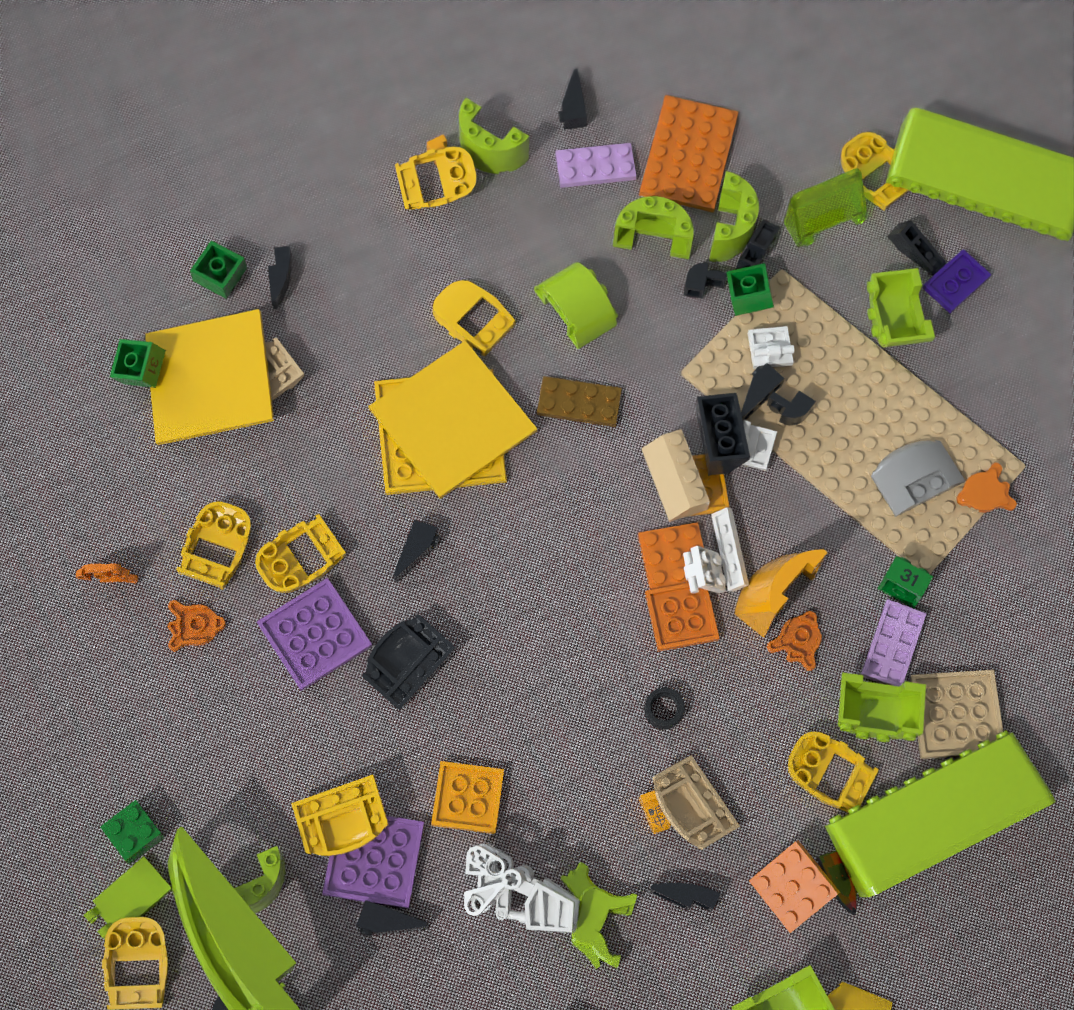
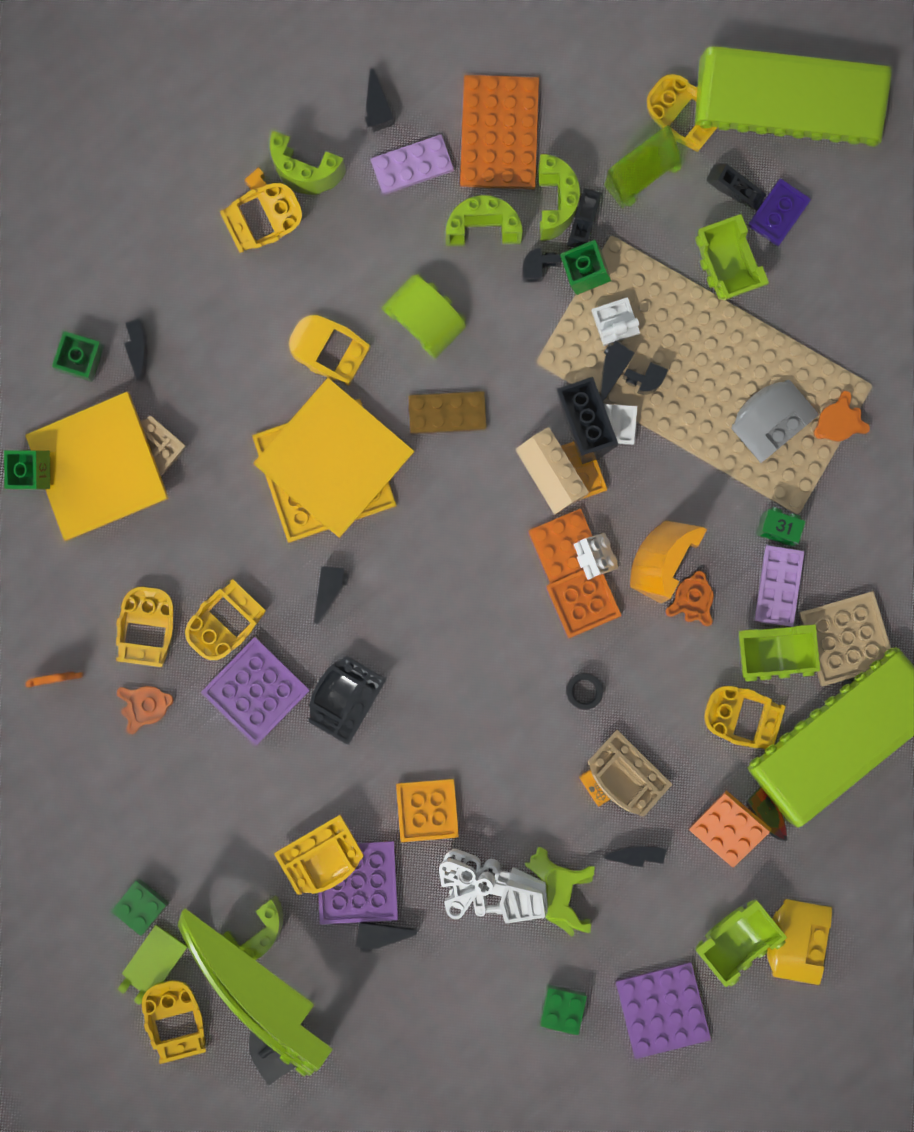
camera: 10 degrees left, 15 degrees up
(730, 549) = (615, 528): white plate -> none

